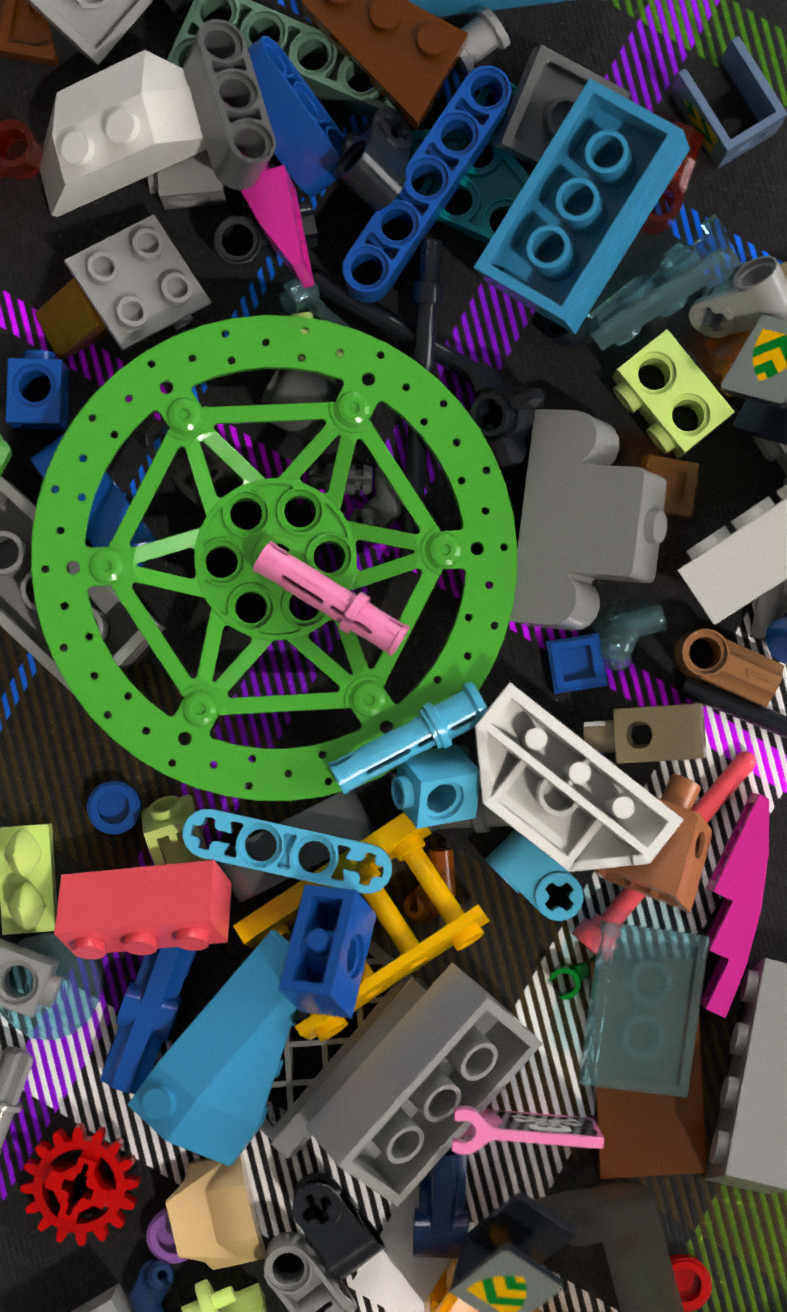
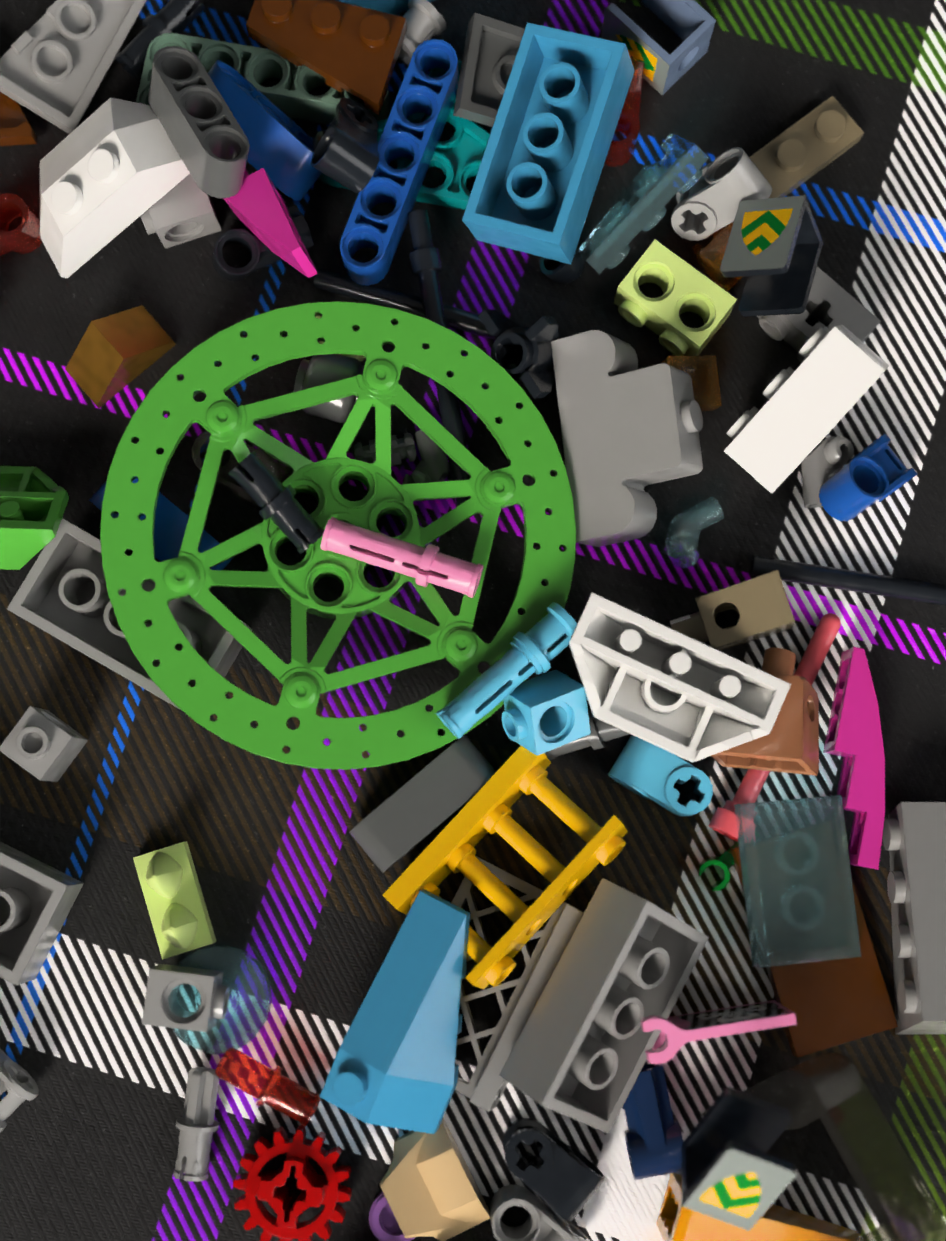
camera: 10 degrees left, 5 degrees down
(44, 415) = (95, 455): blue brick -> none
(78, 1081) = (267, 1085): none -> clear red axle
(114, 807) = (243, 811): blue tile -> none
(138, 282) = (153, 314): light grey hinge -> none
(144, 909) = (292, 899): coral brick -> none
(146, 1018) = (320, 998): blue piece -> none
(164, 830) = (308, 827): yellowish green bracket -> none
(219, 514) = (277, 502): none -> black pin
(286, 857) = (417, 800): medium azure beam -> none
(299, 298) = (309, 291): clear light blue hand -> none
(327, 951) = (479, 895): blue brick -> none
(417, 904) = (556, 833): dark orange arm -> none
(575, 663) = (647, 570): blue tile -> none
(692, 1281) = (912, 1136): red tile -> none
(731, 667) = (795, 536): medium nougat piece -> none

